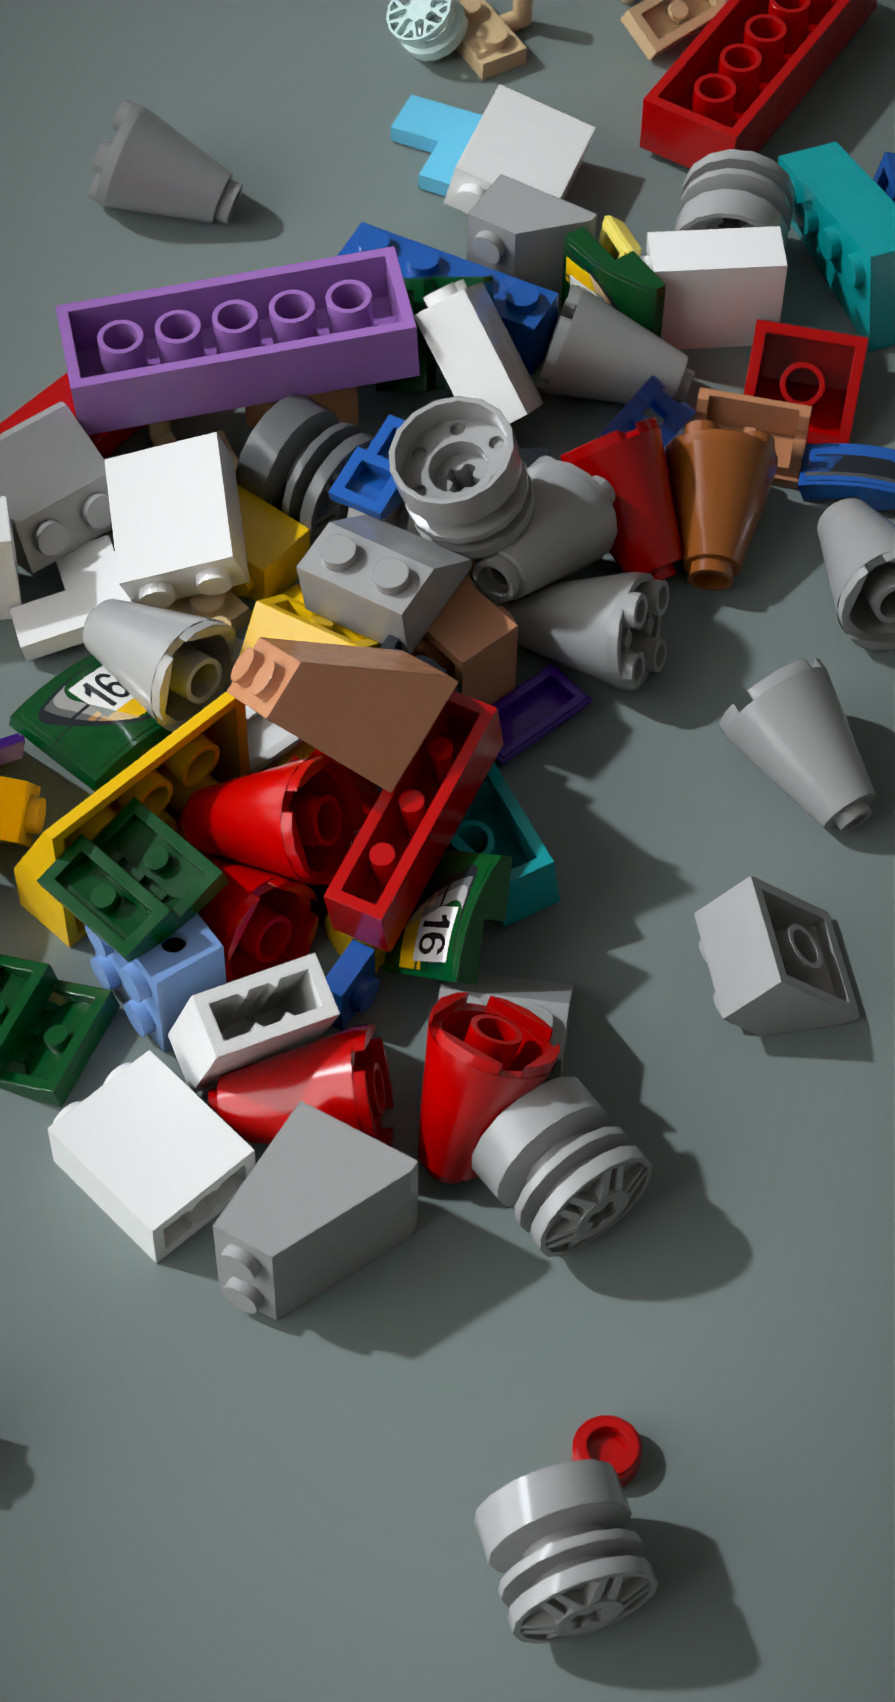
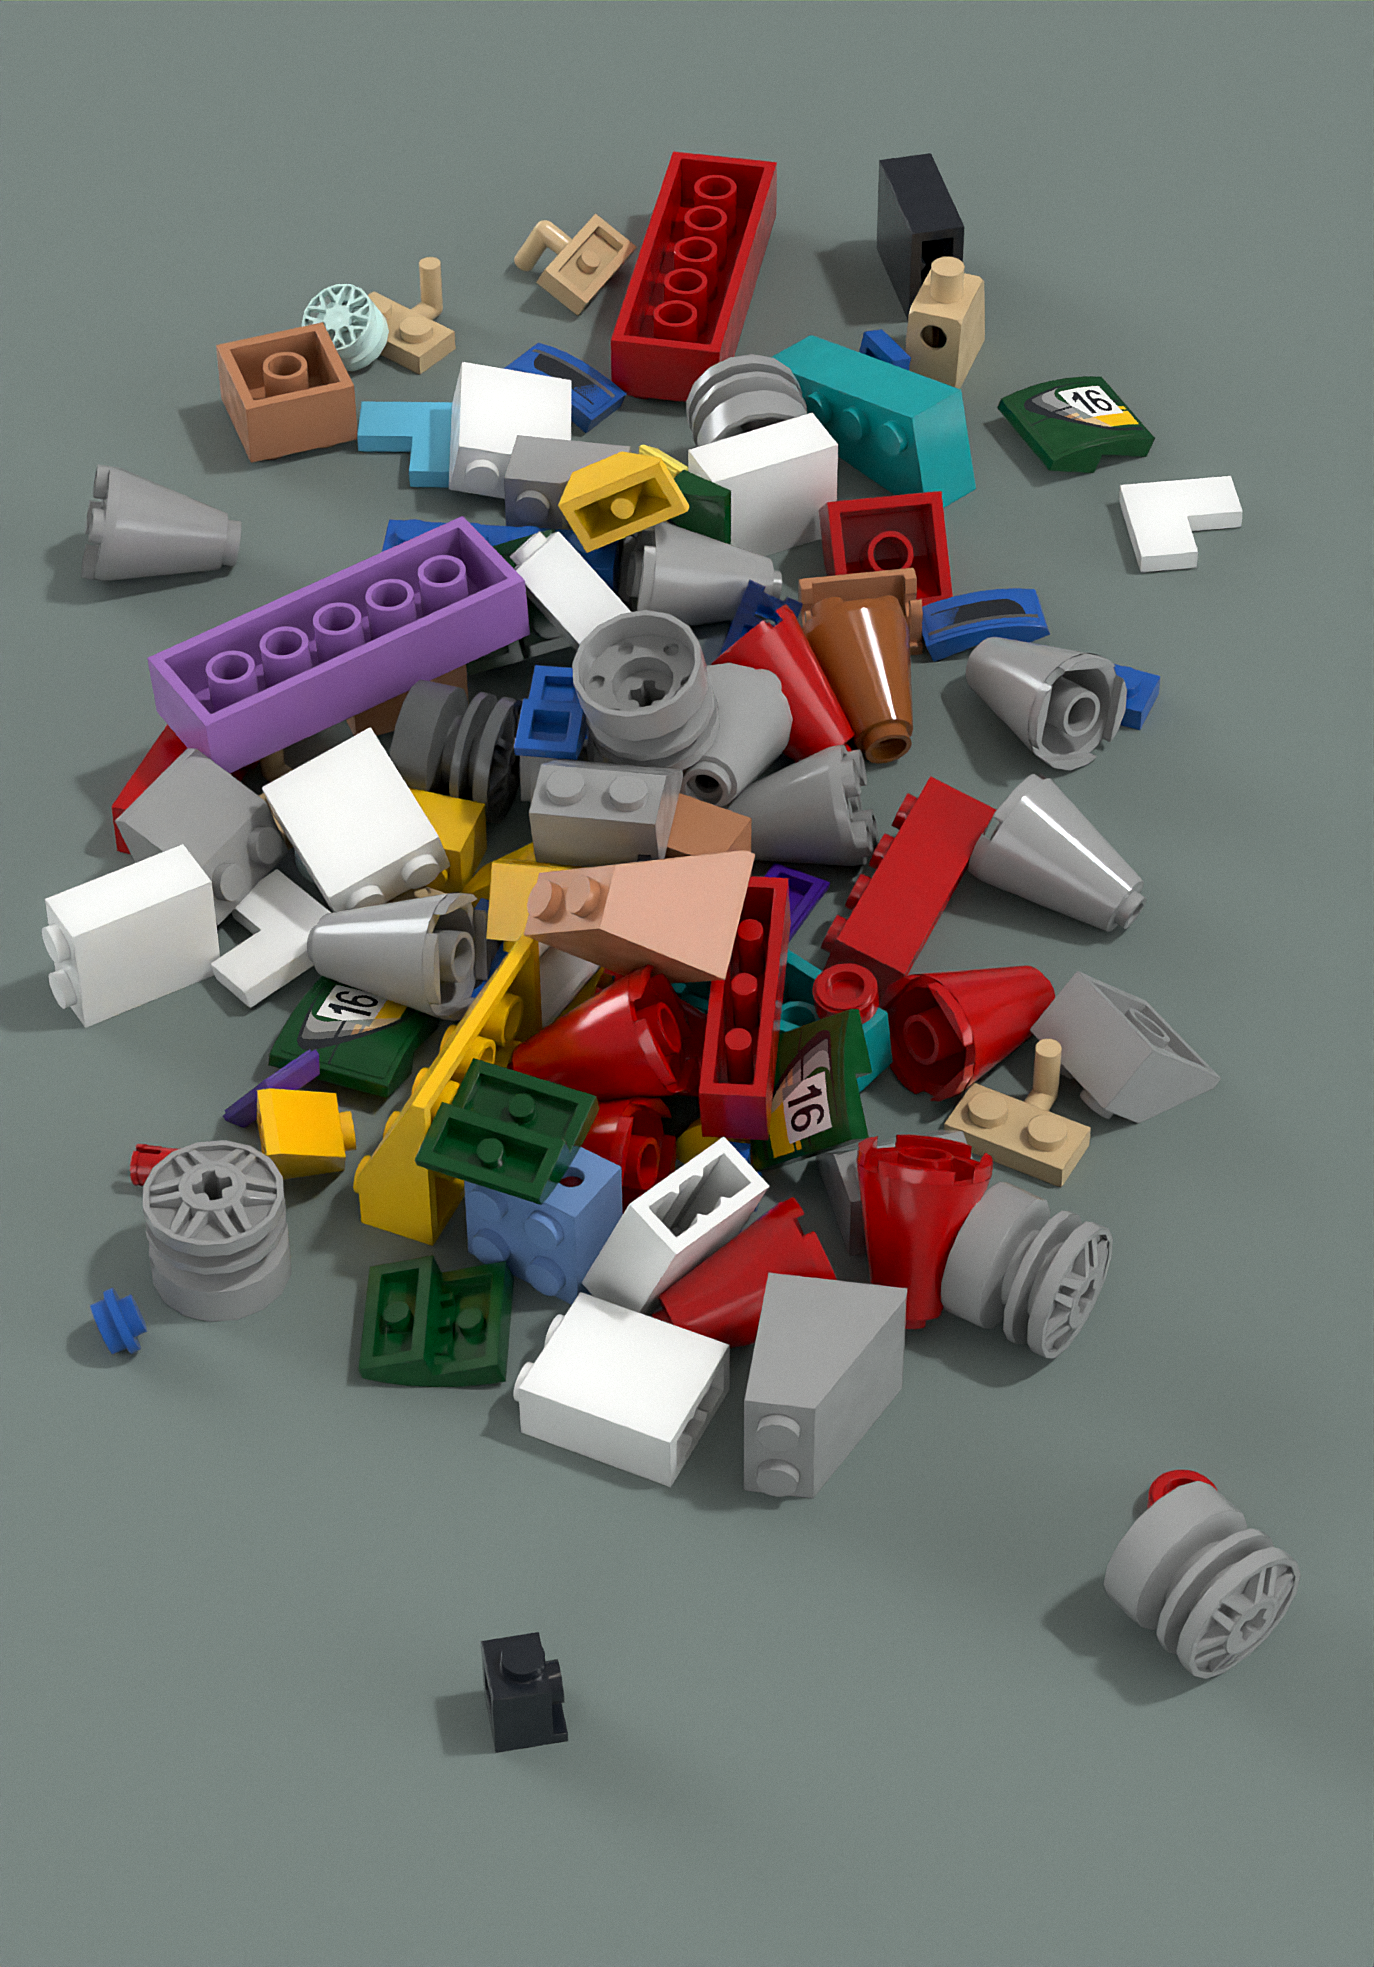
camera: 20 degrees left, 10 degrees down
(342, 69) = (287, 392): none -> nougat brick
(522, 831) = (846, 988): none -> red tile
(551, 266) = (620, 498): none -> yellow slope
(615, 139) = (592, 393): none -> blue slope
(635, 886) = (960, 1024): none -> red cone
(646, 1012) = (1024, 1132): none -> tan plate
(648, 736) = (911, 883): none -> red brick

